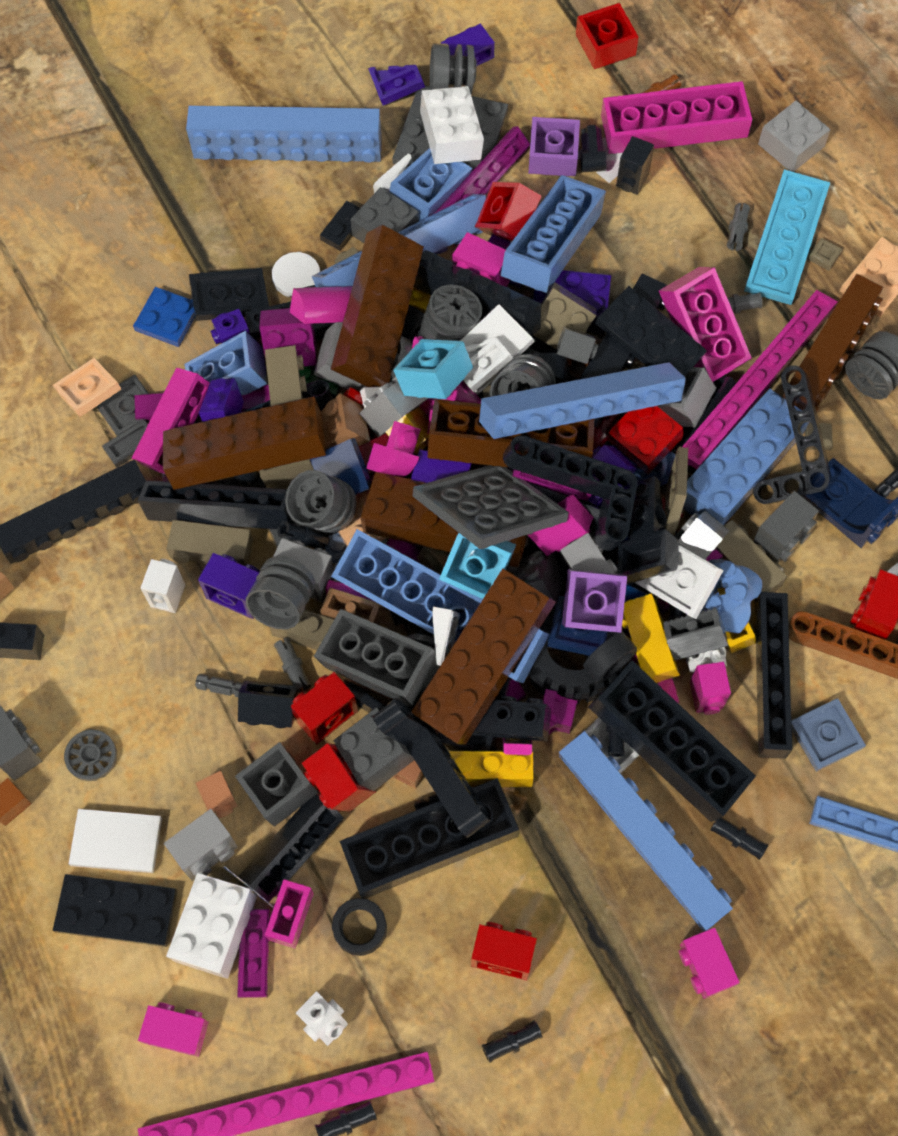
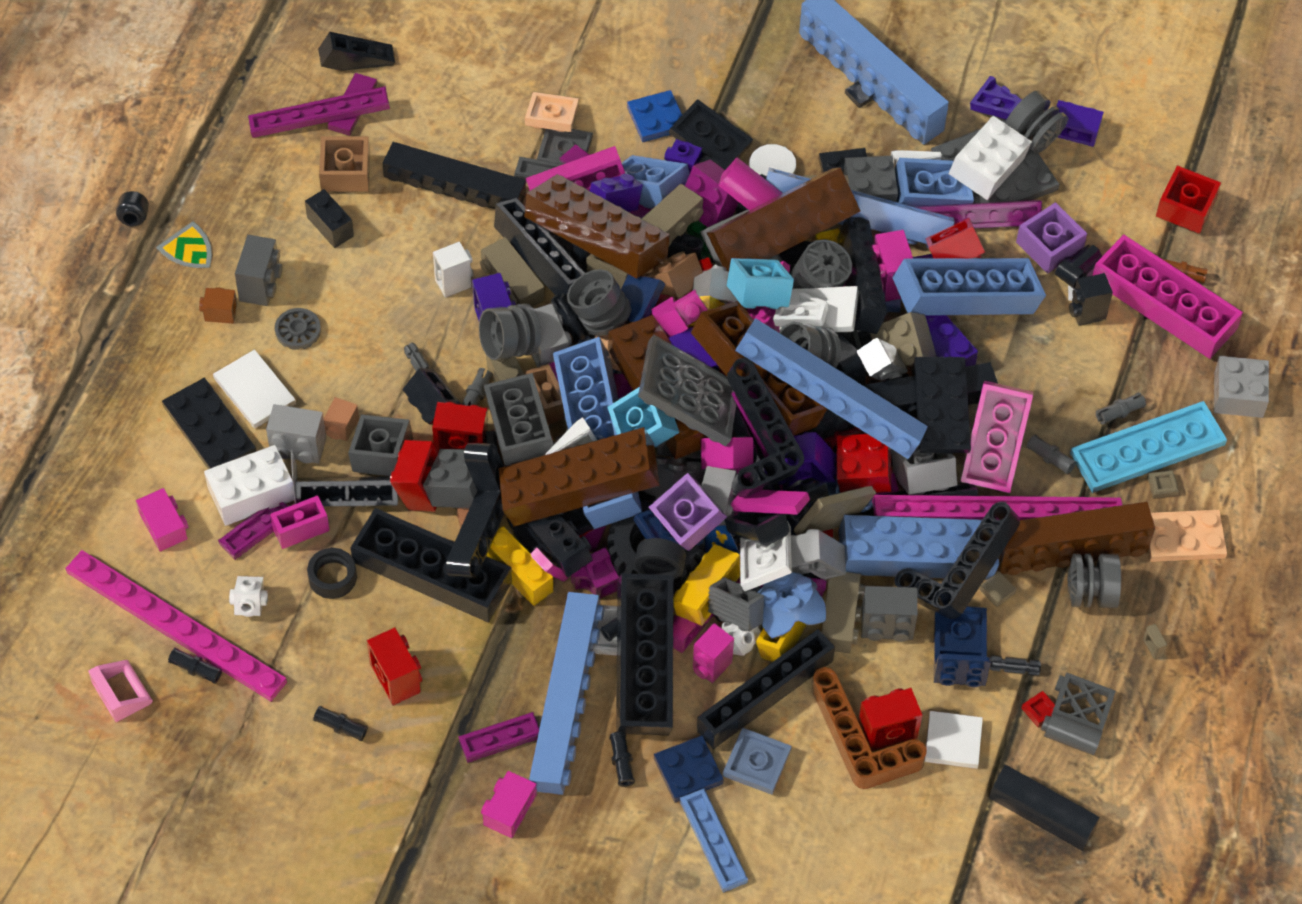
camera: 45 degrees right, 10 degrees down
(292, 167) = (857, 96): none -> black tile
(634, 917) = (499, 737): none -> magenta tile
(646, 529) = (772, 502): none -> dark pink tile
(788, 792) = (688, 768): none -> dark blue plate

